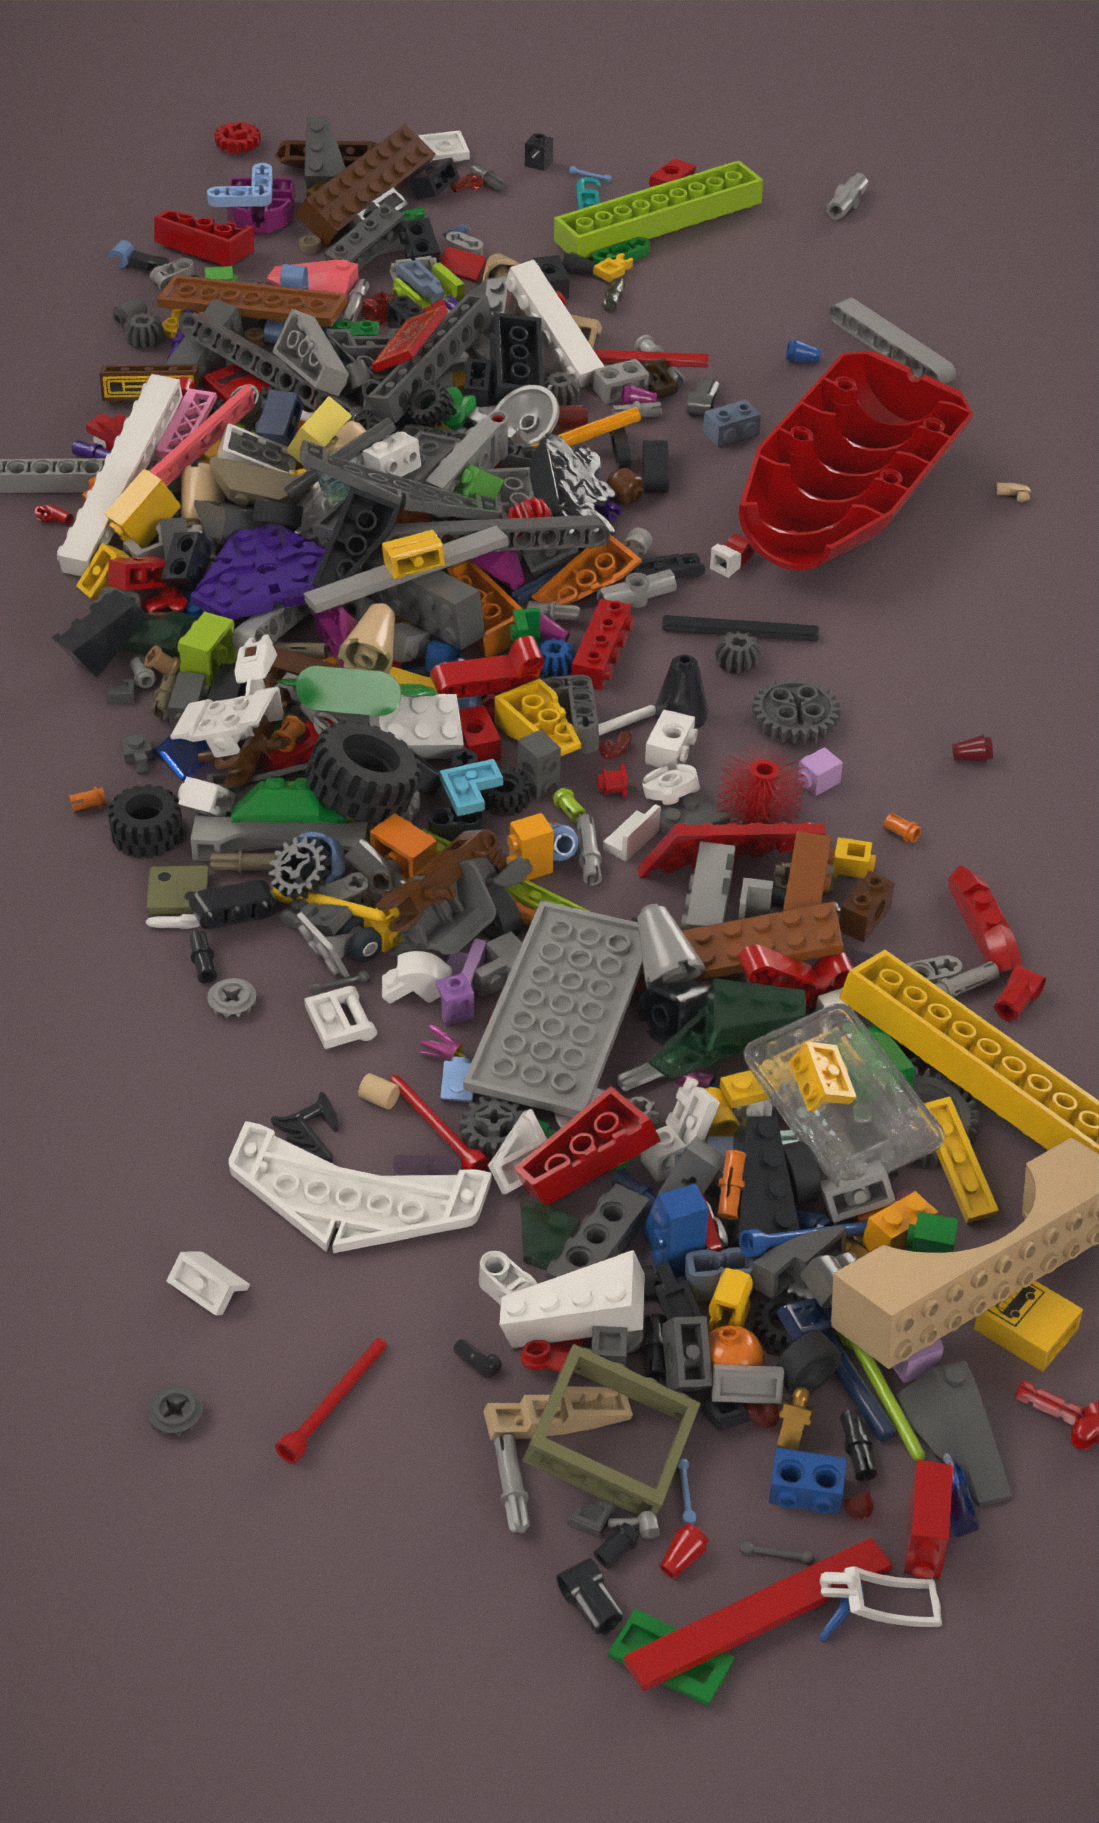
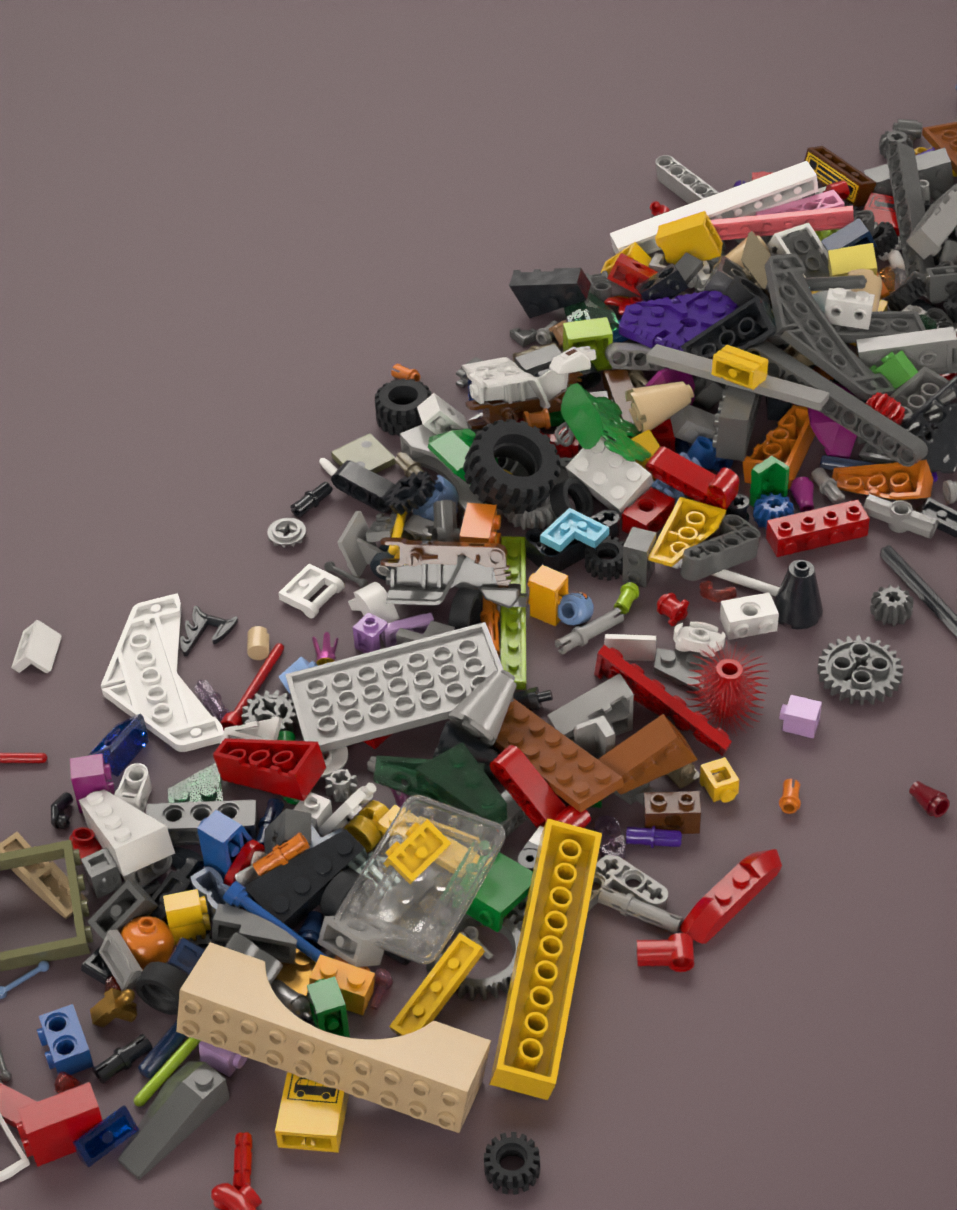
camera: 60 degrees right, 0 degrees up
(424, 1267) = (123, 743): none -> clear blue slope
(478, 1306) = (90, 775): none -> magenta brick
(880, 934) = (653, 837): none -> dark purple axle

